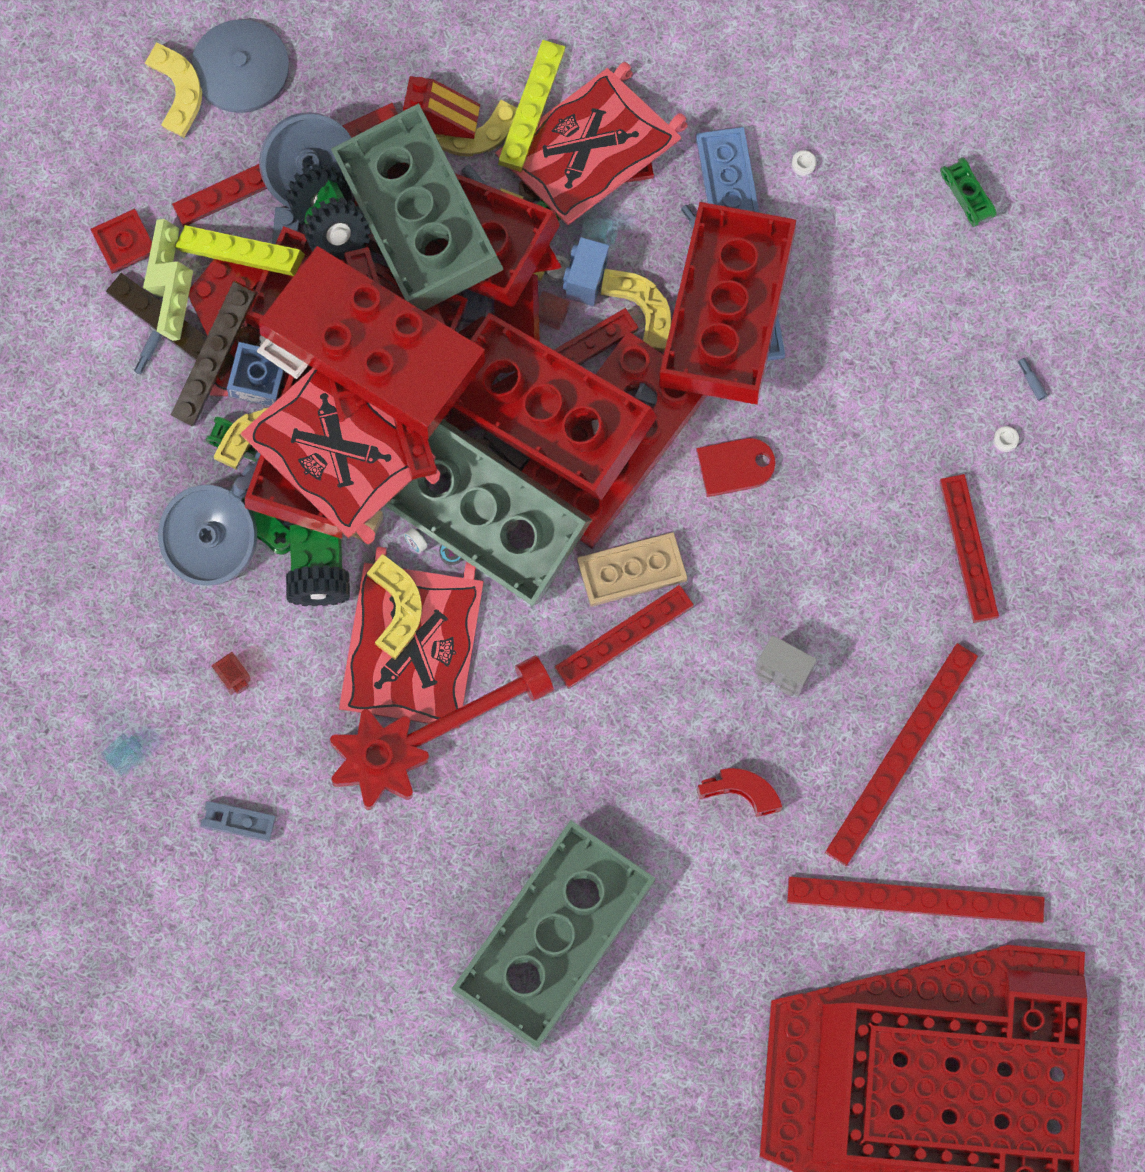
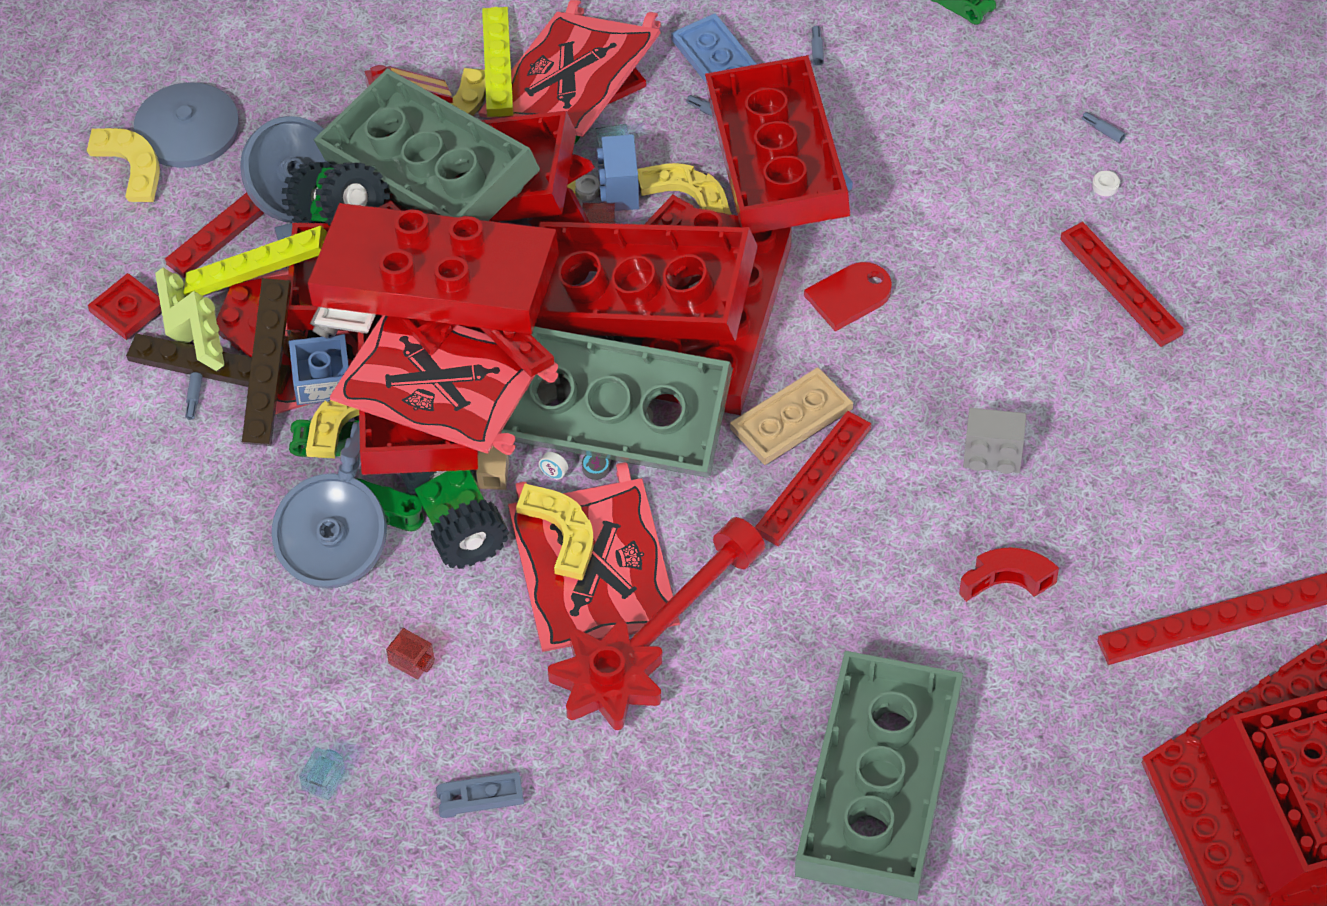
camera: 15 degrees left, 20 degrees down
(803, 162) = (787, 26): white tile -> none
(820, 194) = (817, 46): none -> sand blue pin
(901, 754) = (1152, 489): red plate -> none

